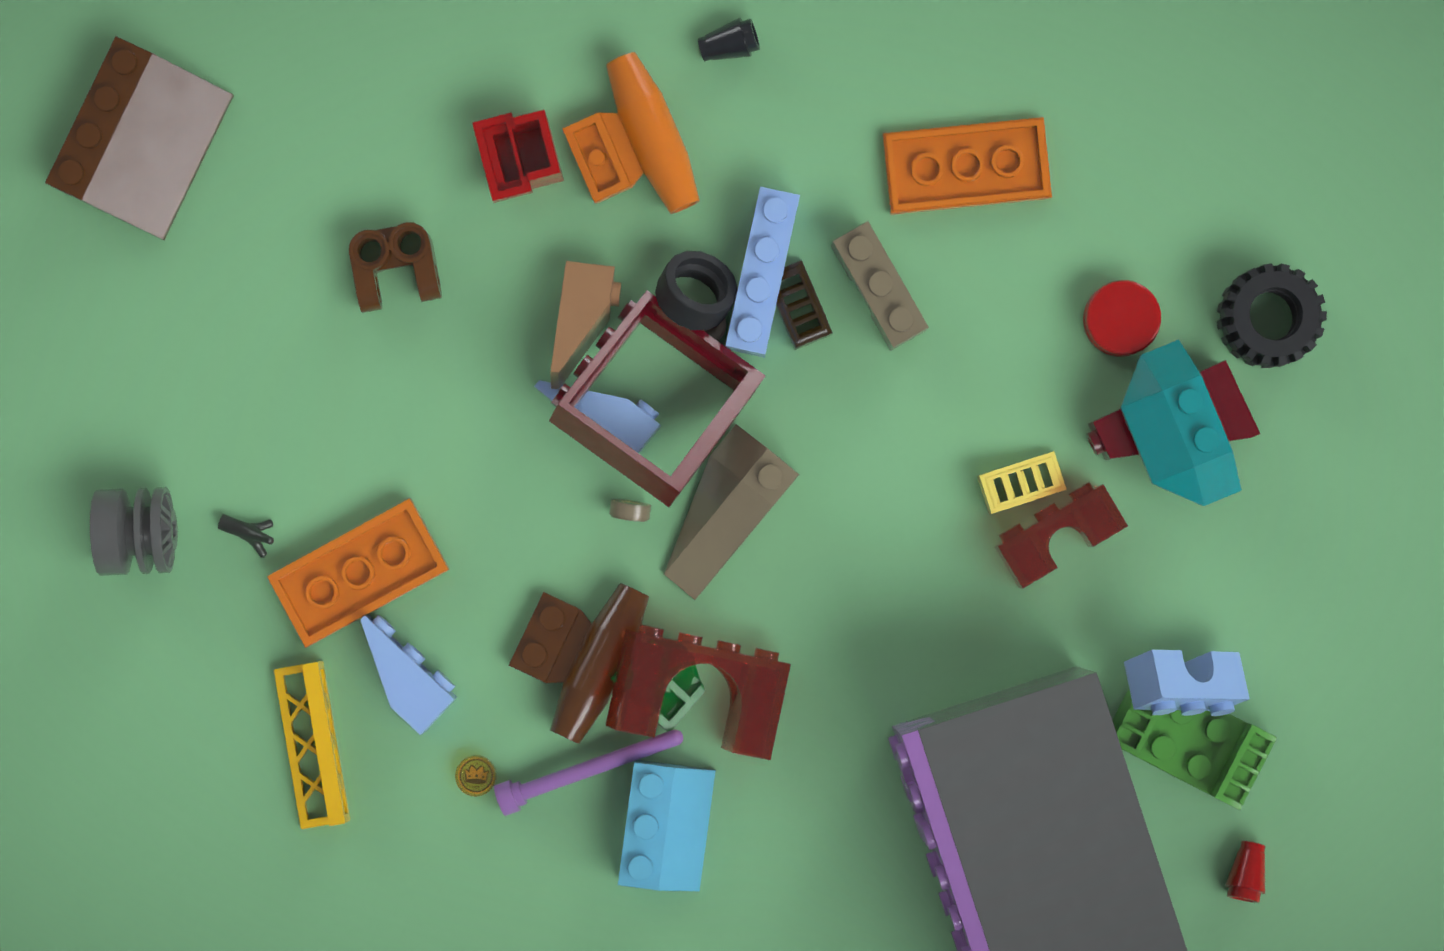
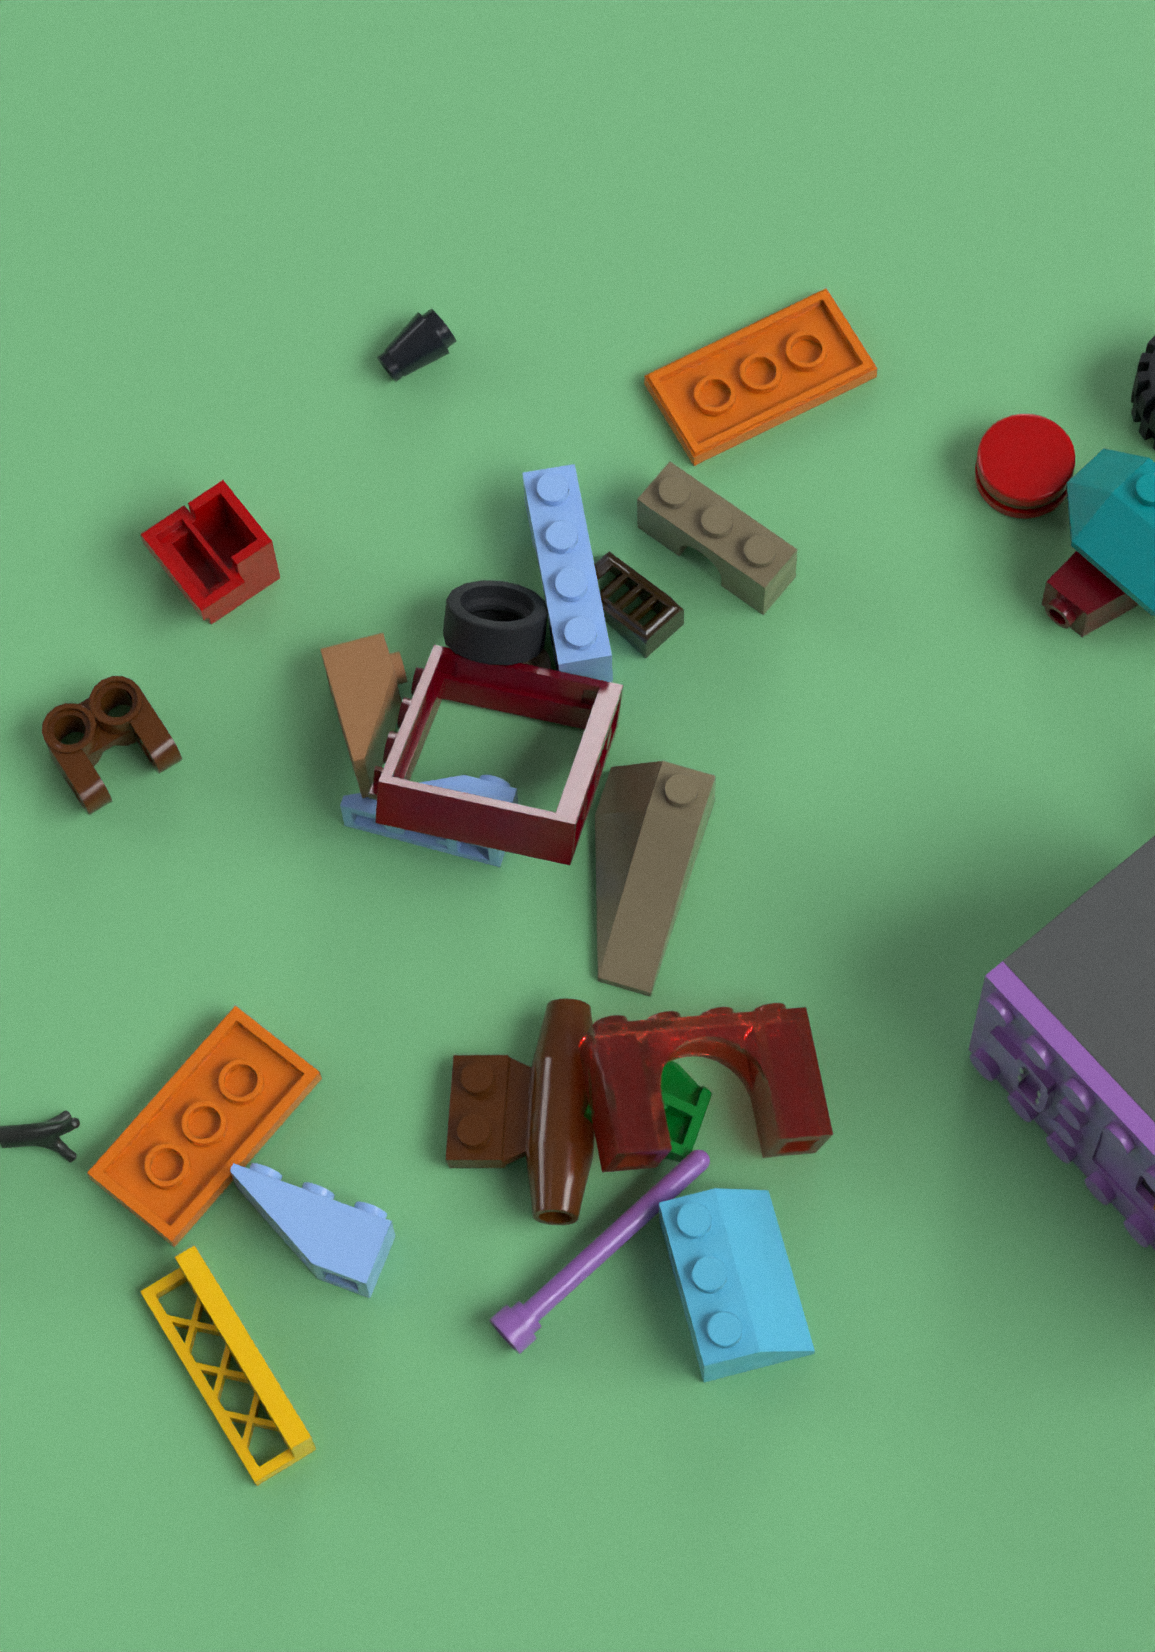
camera: 20 degrees left, 20 degrees down
(476, 775) = (459, 1322): clear yellow tile -> none
(630, 510) = (522, 913): dark tan tile -> none
(636, 141) = (352, 486): orange plate -> none
(990, 493) = (974, 732): light yellow slope -> none
(1027, 549) = (1092, 697): clear red arch -> none

